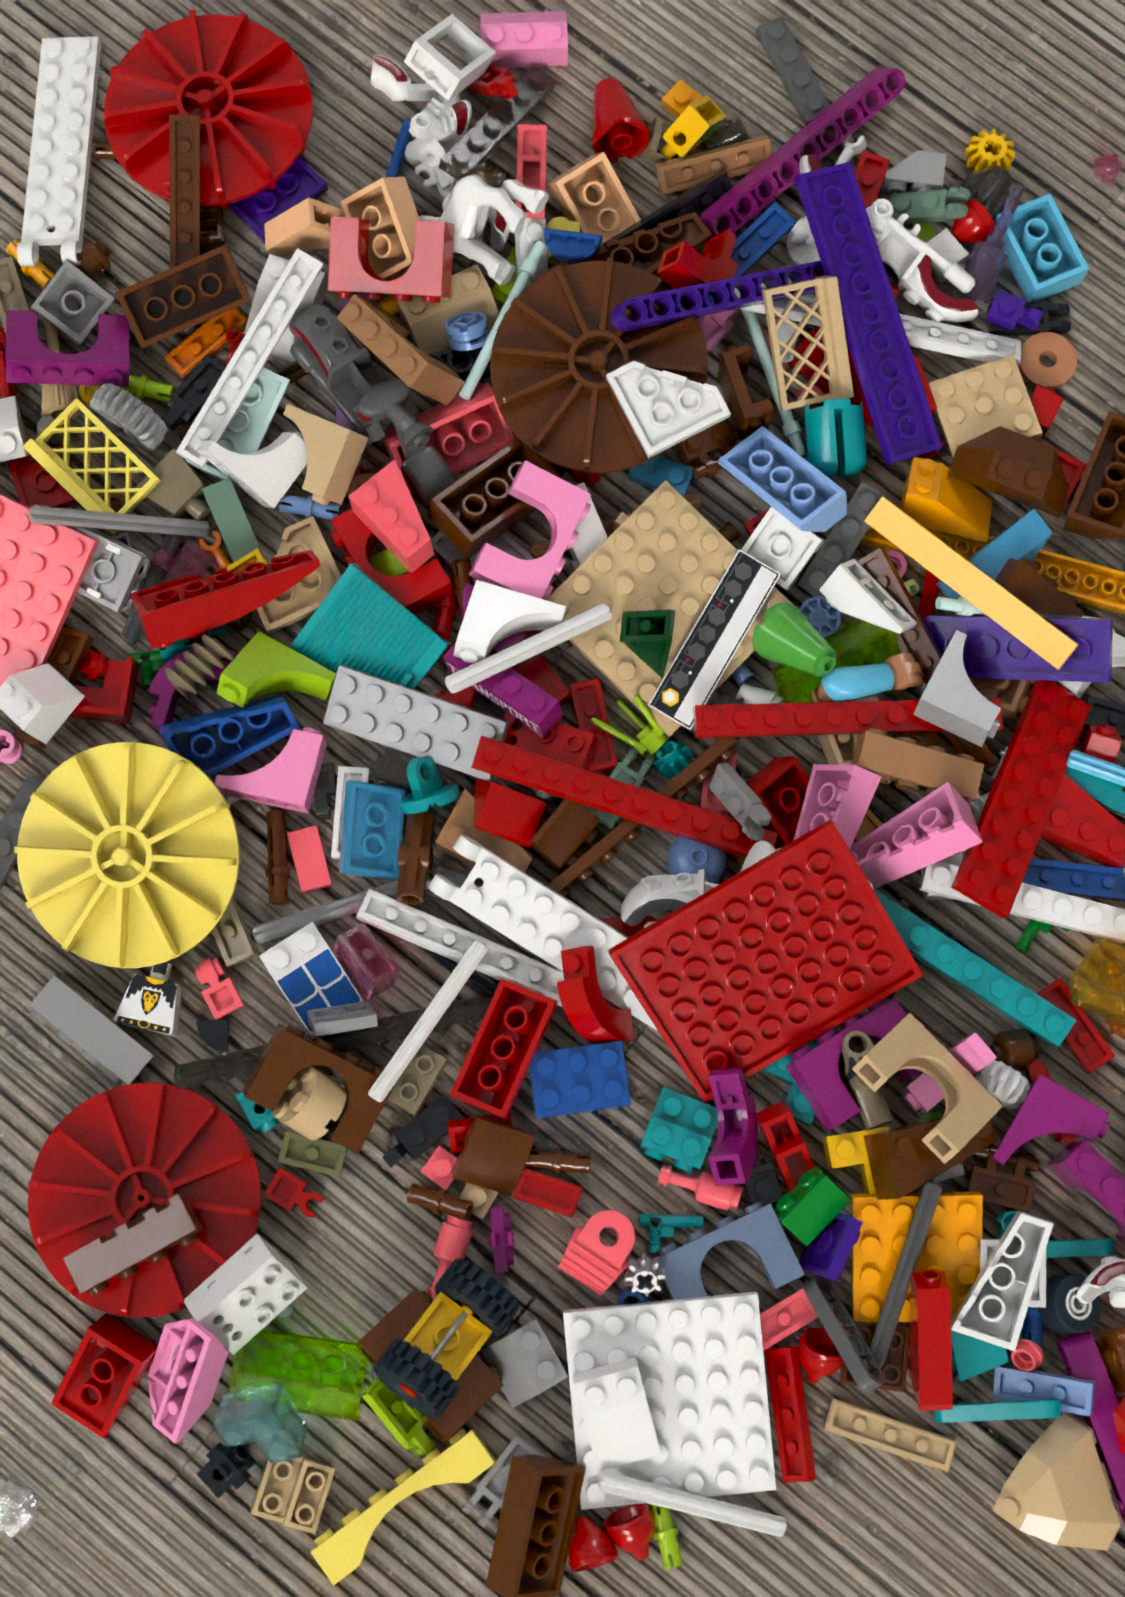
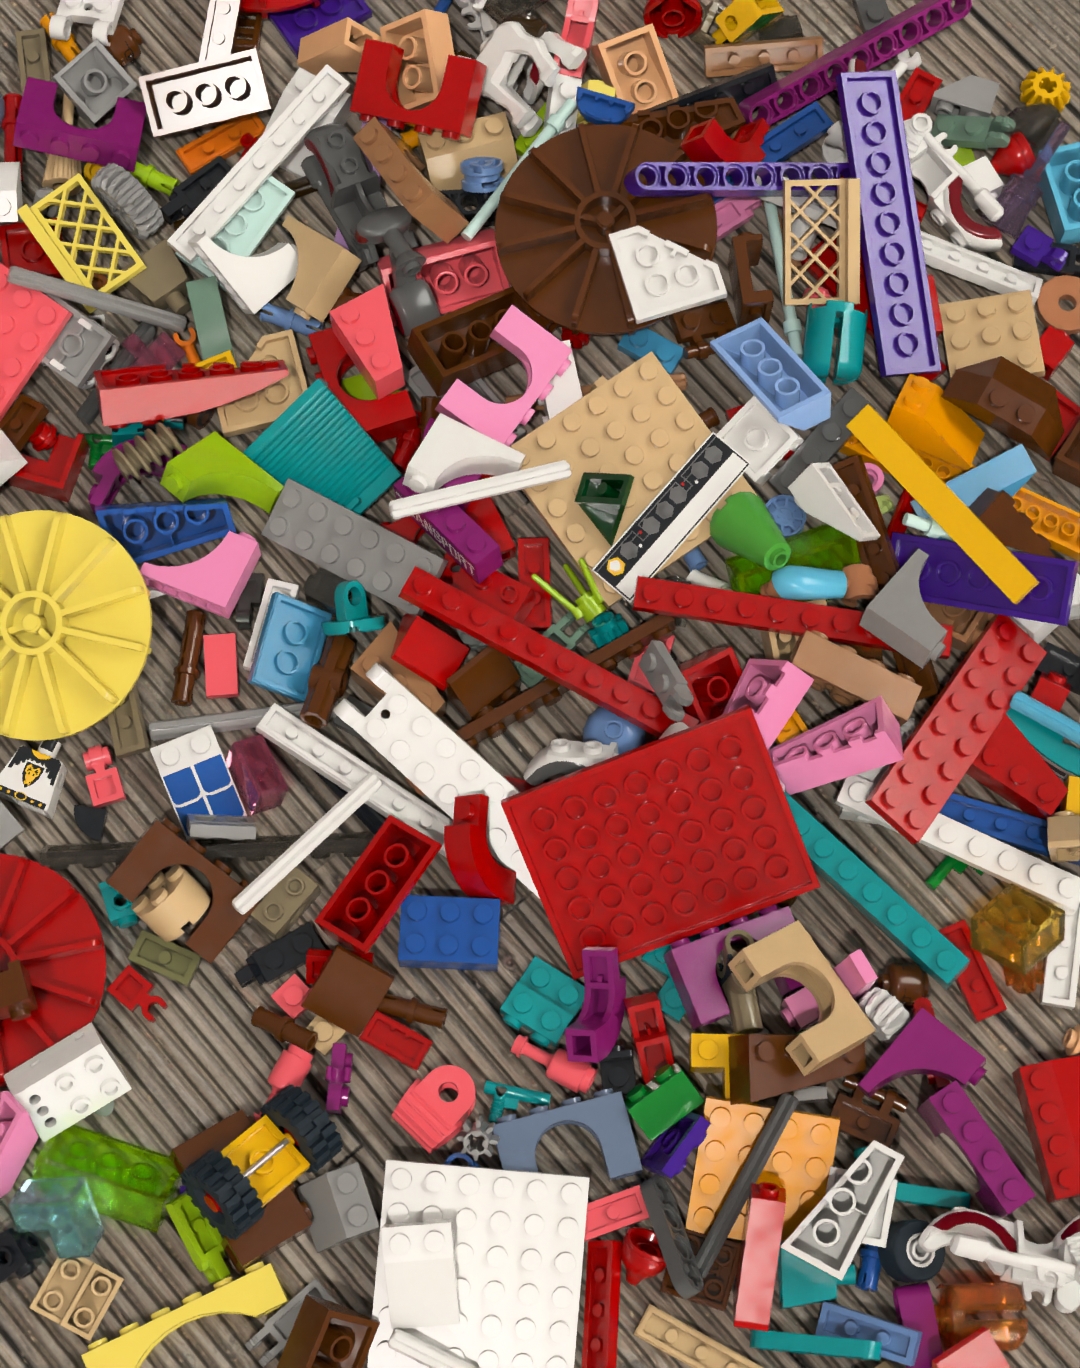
camera: 10 degrees right, 5 degrees down
(1027, 1355) = (857, 1294): coral plate -> none

